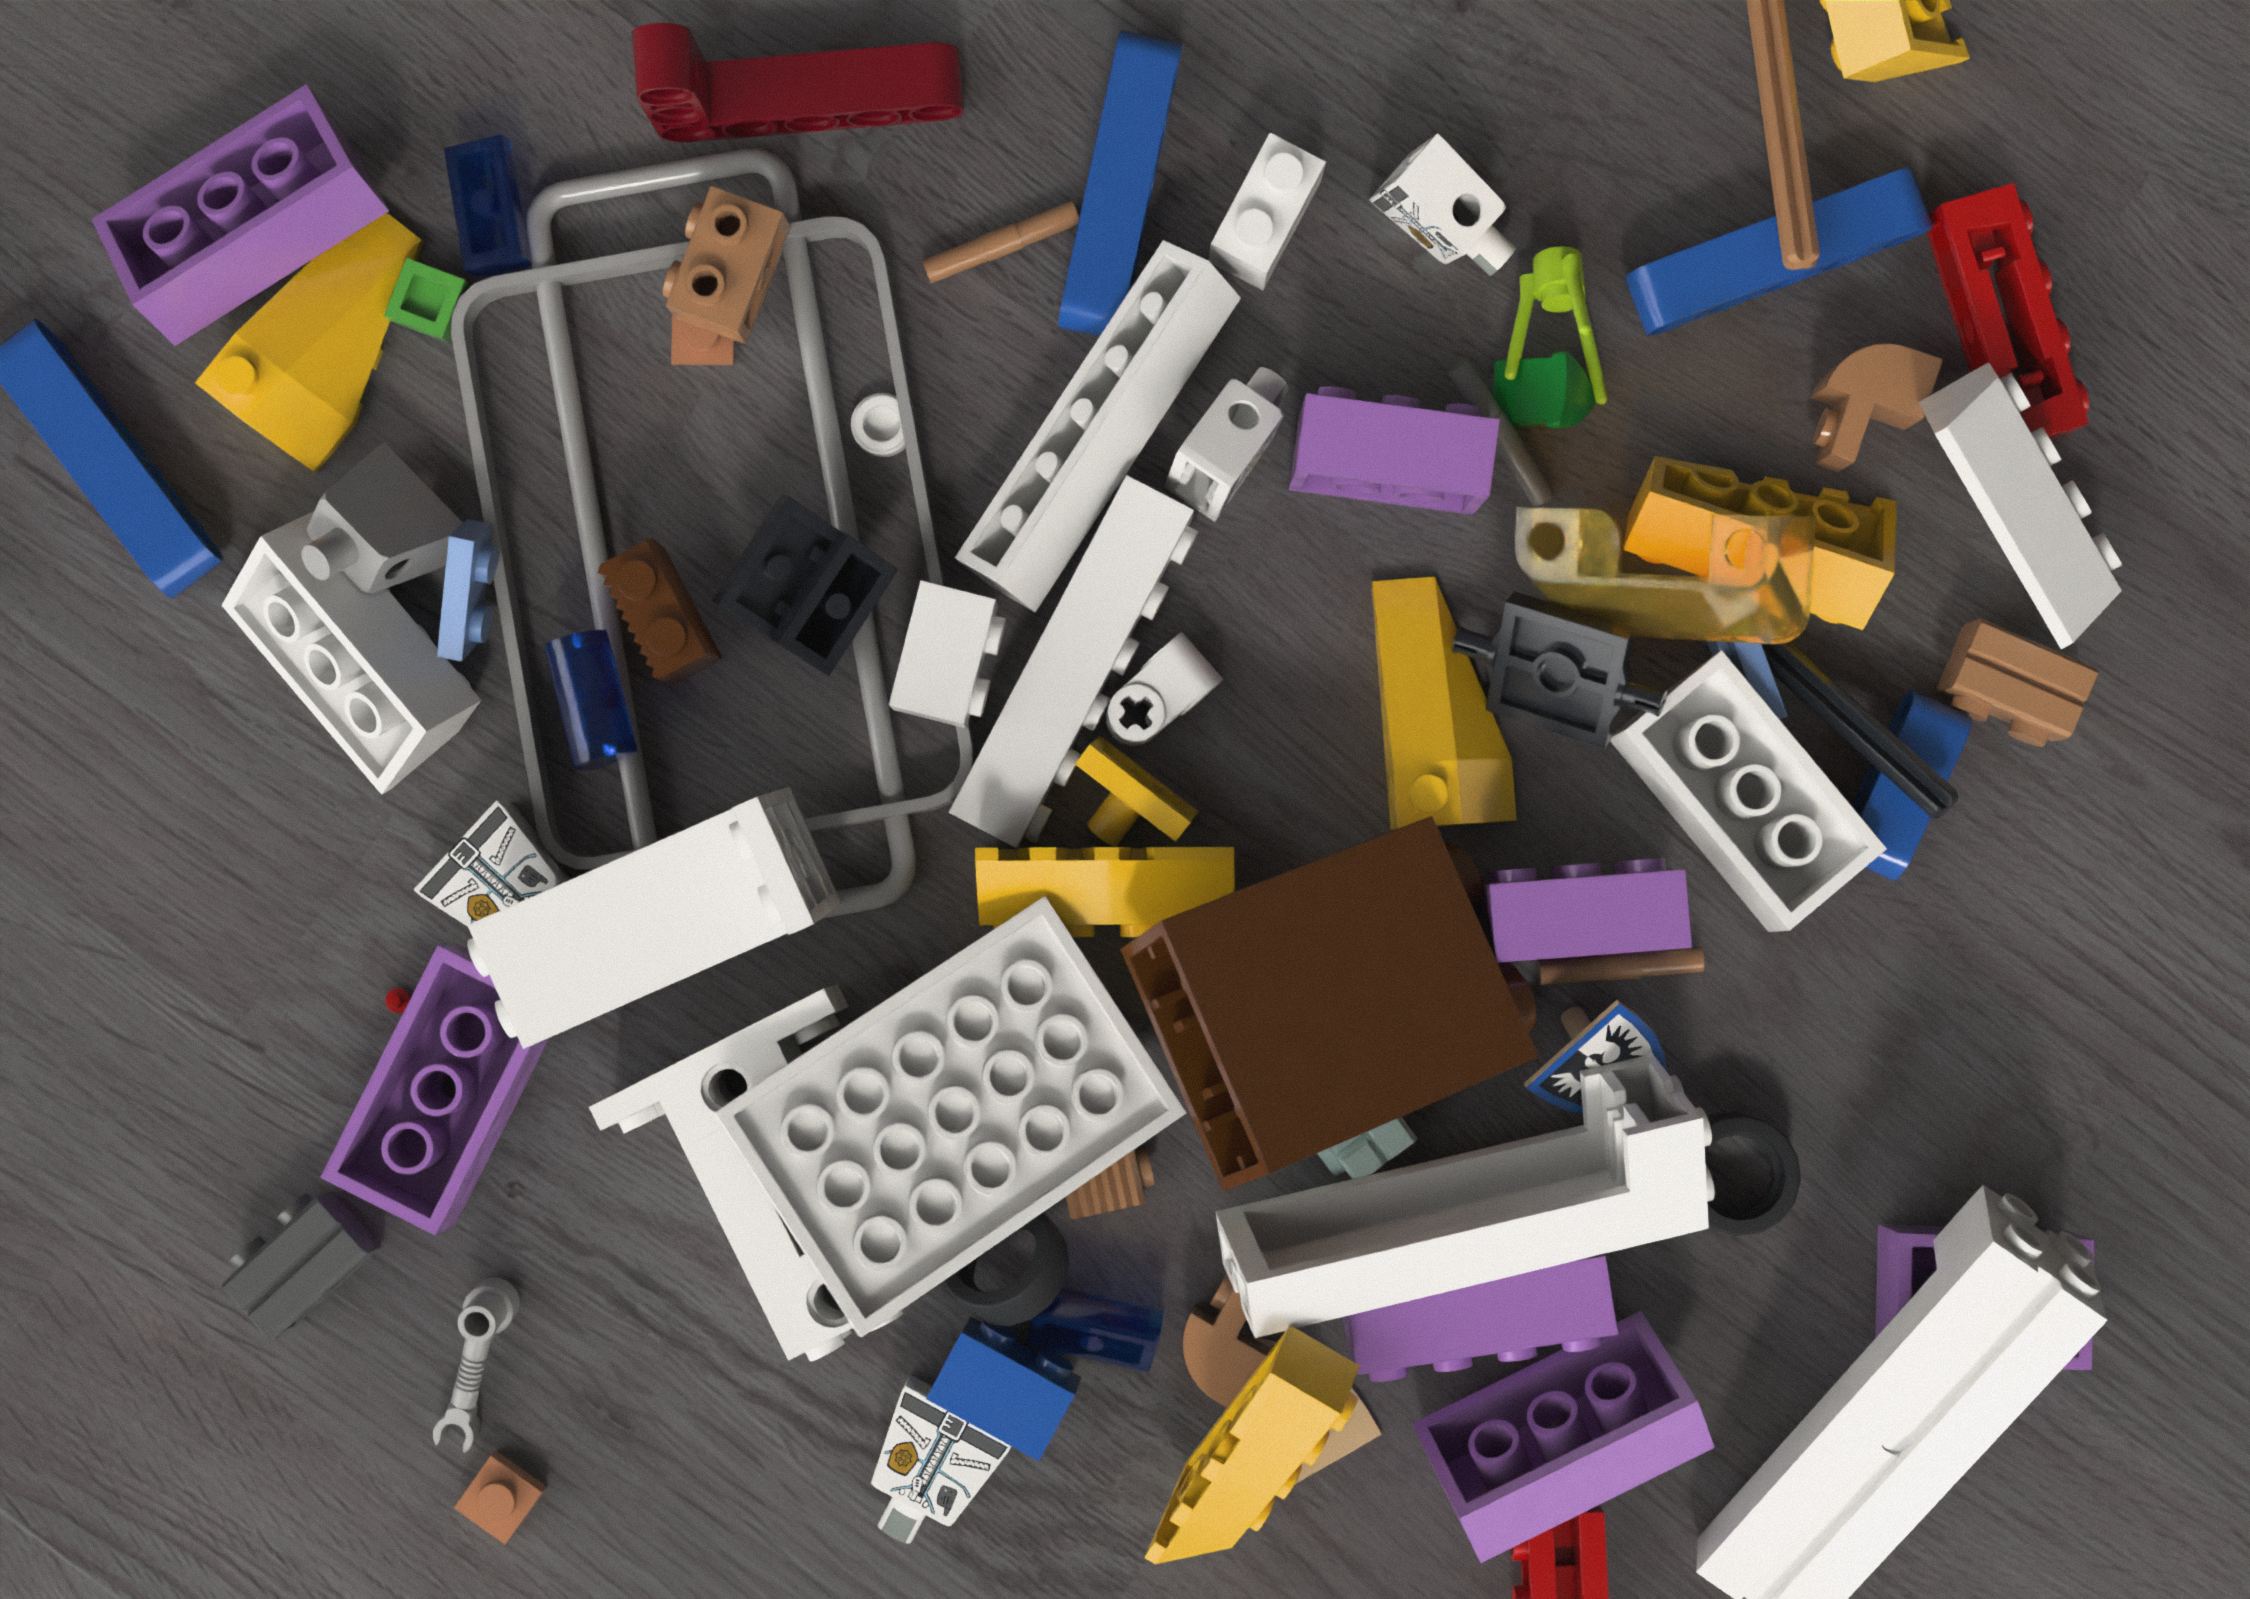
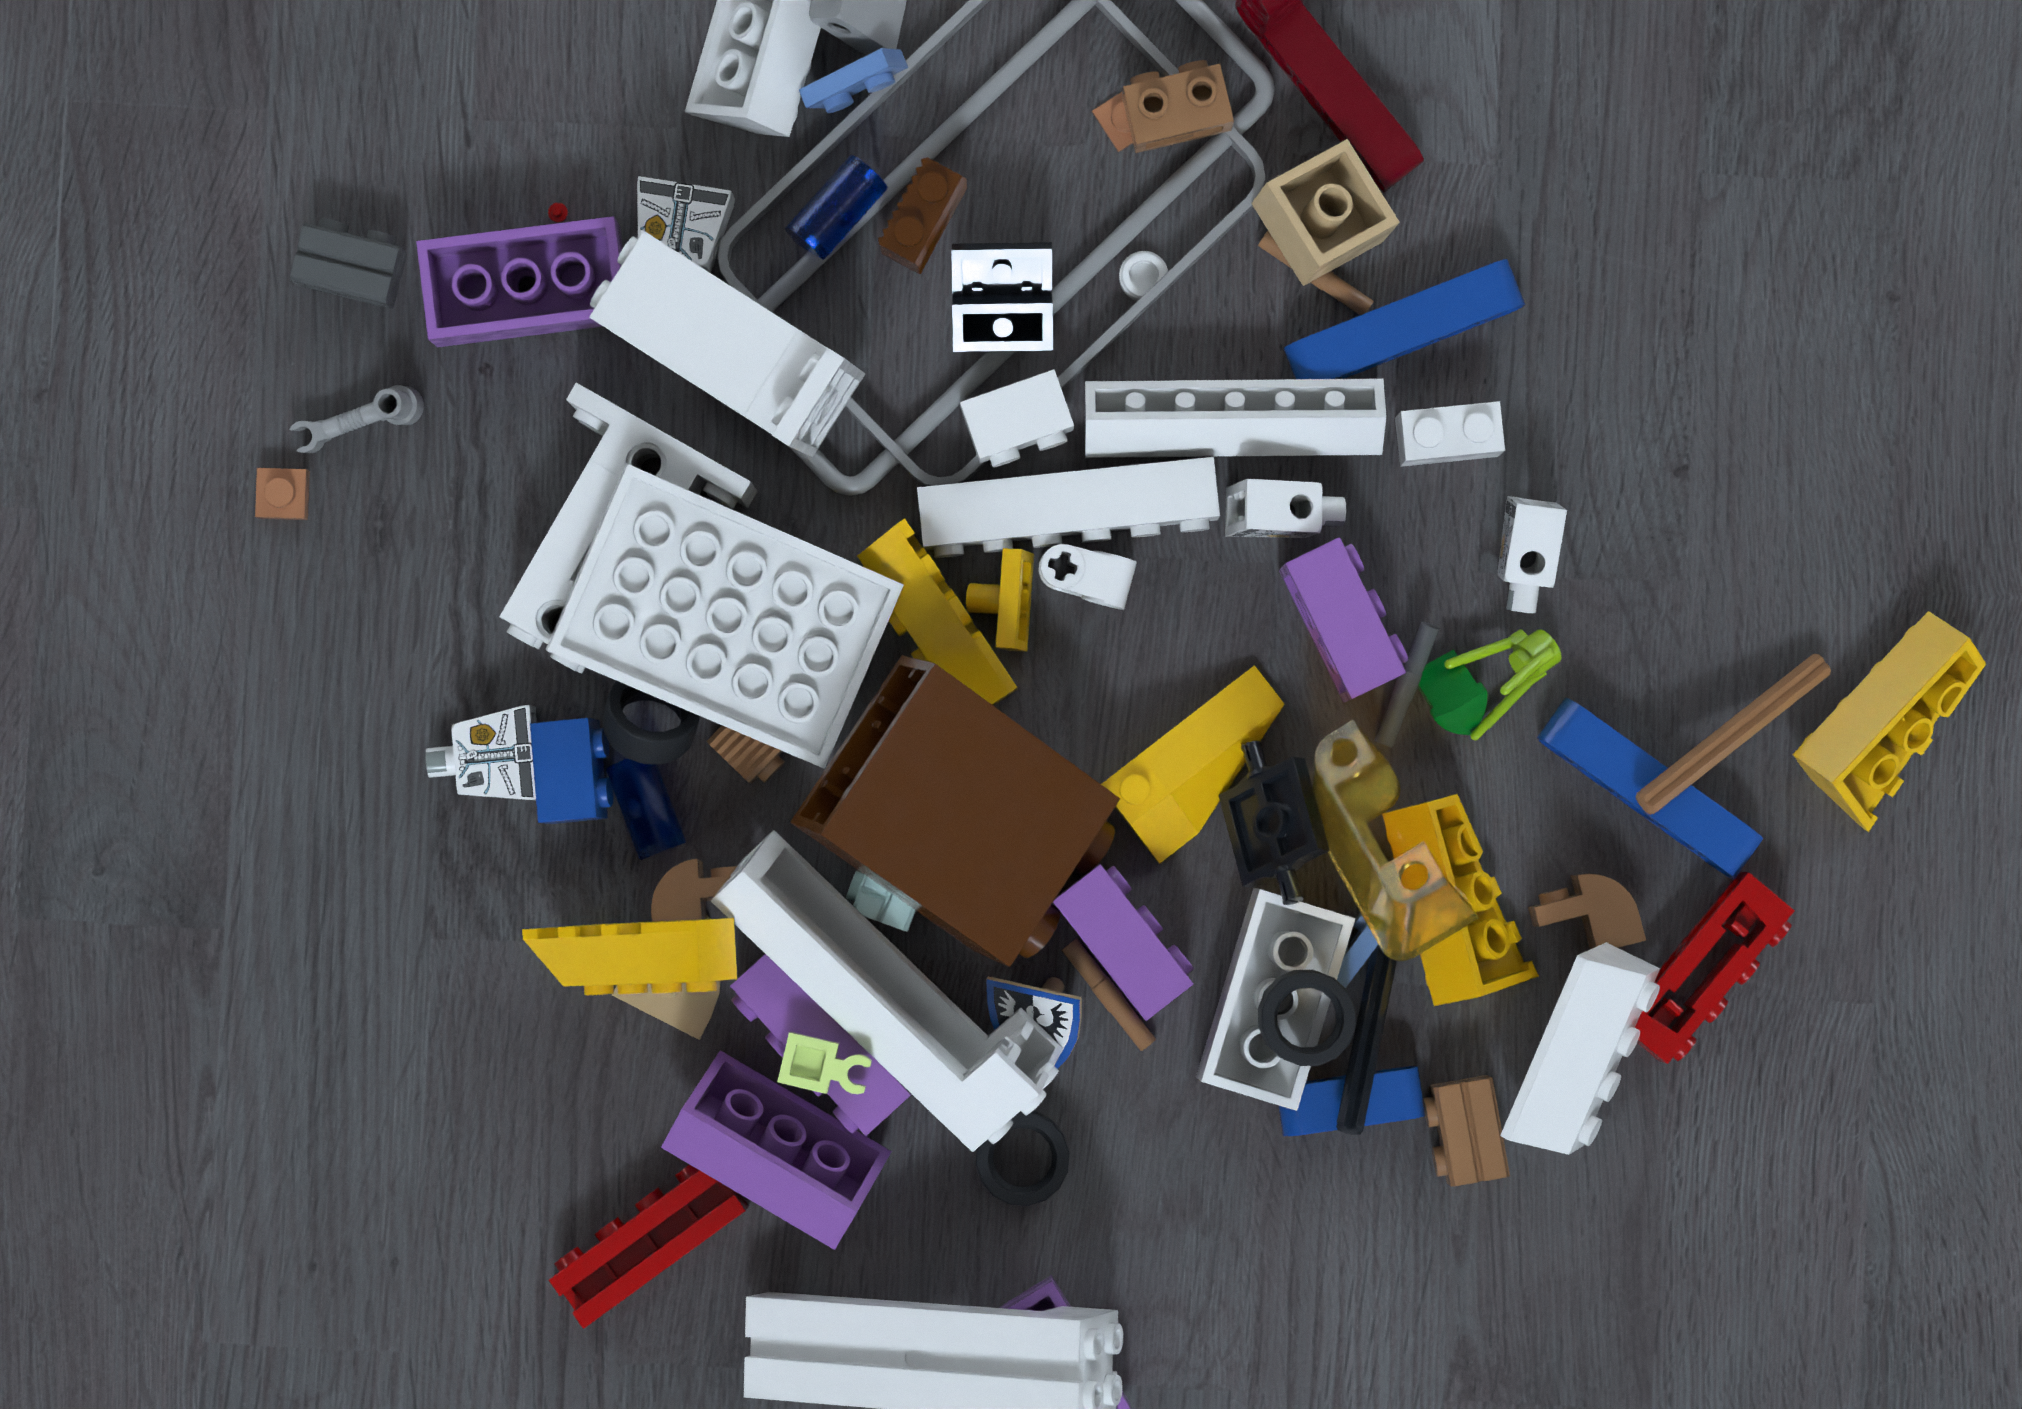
camera: 60 degrees right, 0 degrees up
(944, 184) = (1325, 212): none -> tan brick
(1505, 1341) = (813, 1064): none -> yellowish green plate
(1847, 760) = (1334, 1044): none -> black tyre

